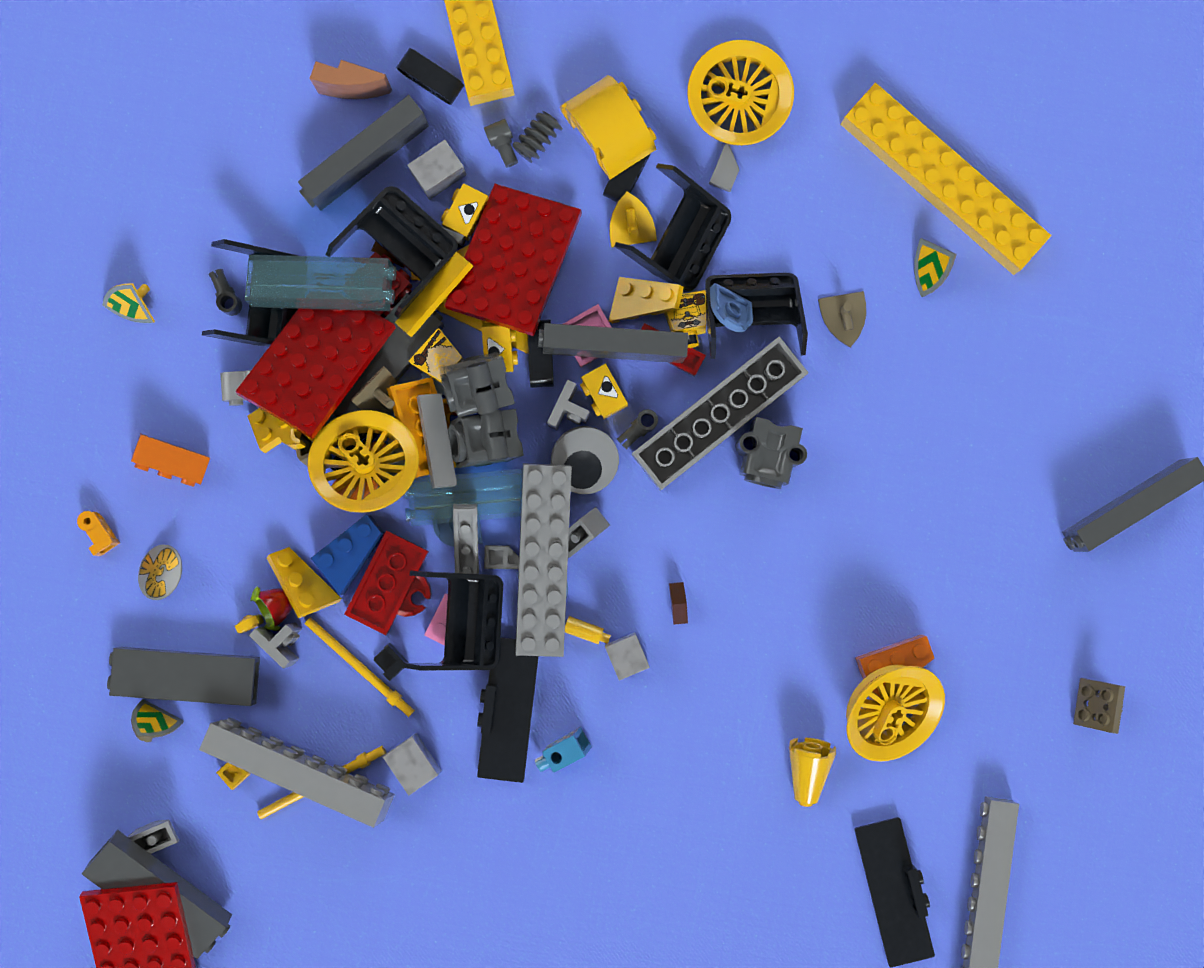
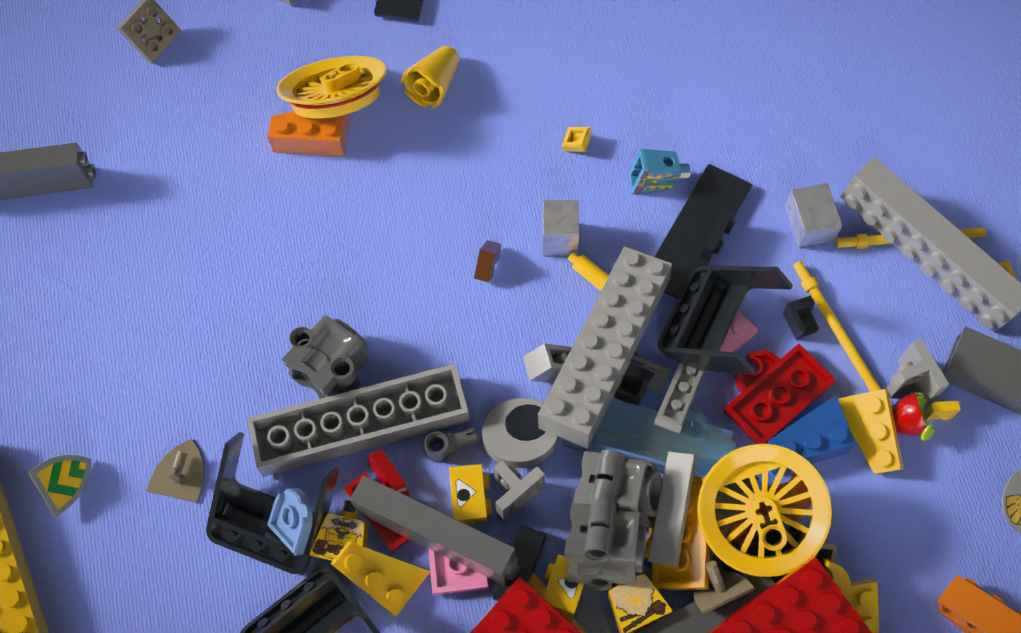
camera: 155 degrees left, 20 degrees down
(507, 538) = (634, 385): none -> black panel
(651, 758) = (577, 139): none -> yellow tile
(674, 379) = (386, 472): none -> red piece

